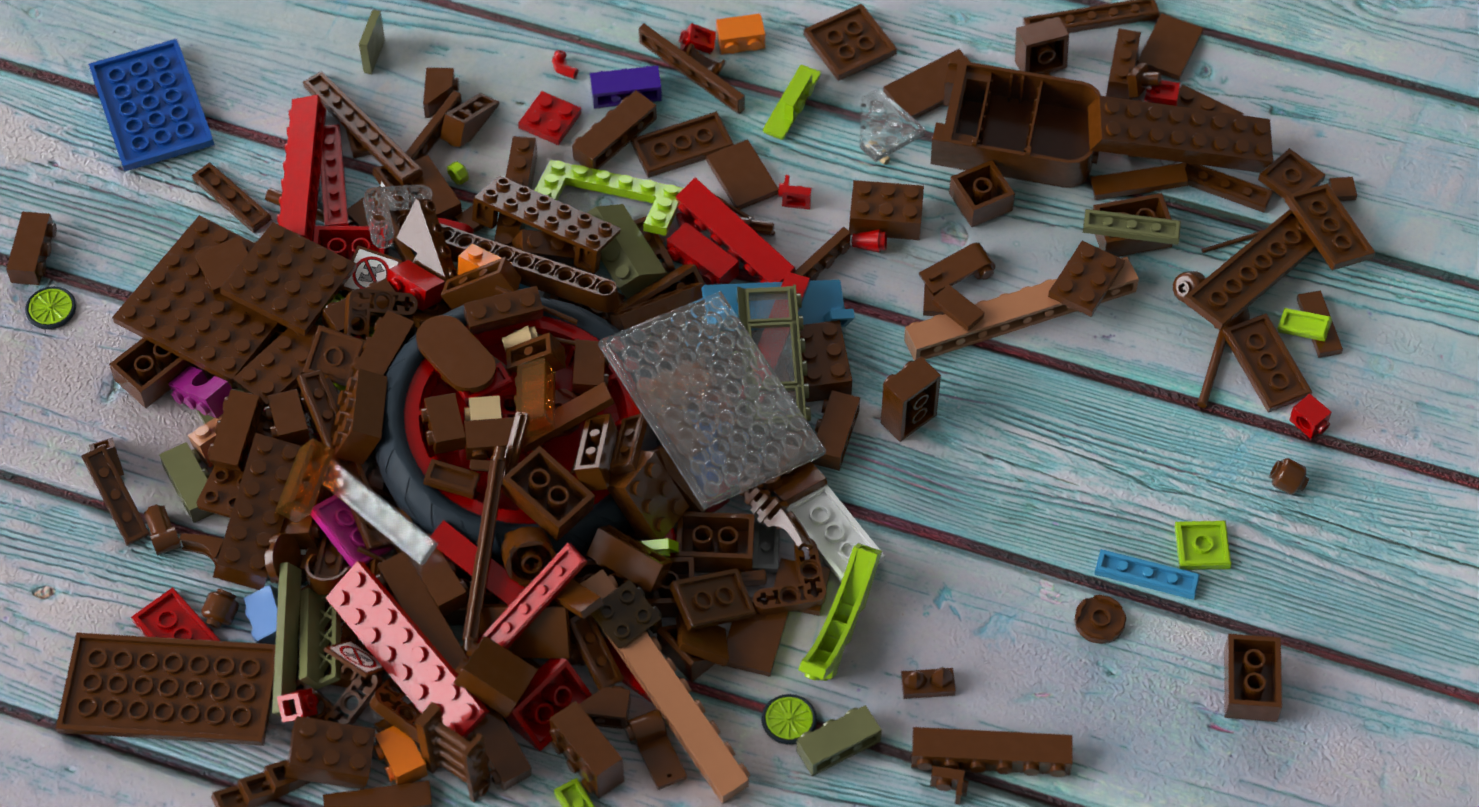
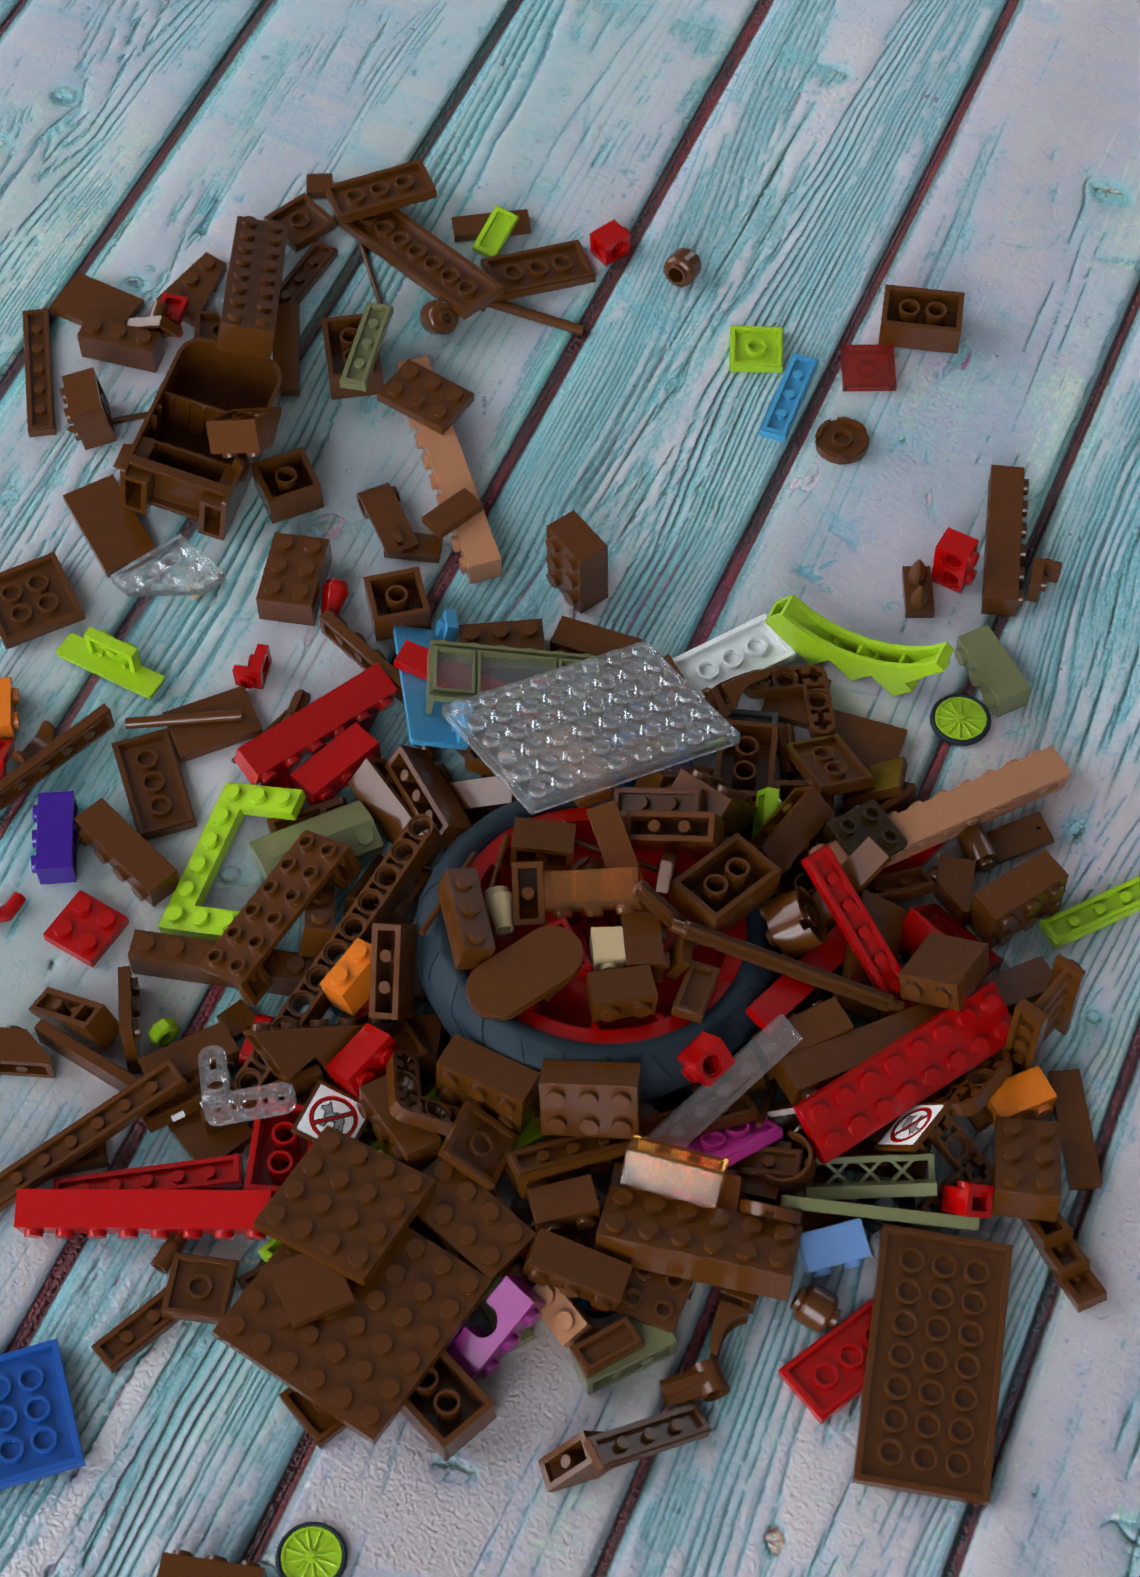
camera: 85 degrees left, 0 degrees up
(184, 463) = (606, 1346): none -> reddish brown tile
(248, 215) = (199, 1288): none -> reddish brown tile
(393, 490) = (705, 1059): none -> red brick
(466, 147) = (128, 1012): none -> reddish brown wing
(551, 442) = (666, 871): none -> reddish brown tile
(739, 152) = (183, 719): none -> reddish brown bar
(865, 281) = (396, 600): none -> reddish brown brick
(952, 702) = (955, 560): none -> red brick
(1002, 135) = (243, 431): none -> reddish brown slope
(1193, 639) = (868, 367): none -> clear red tile

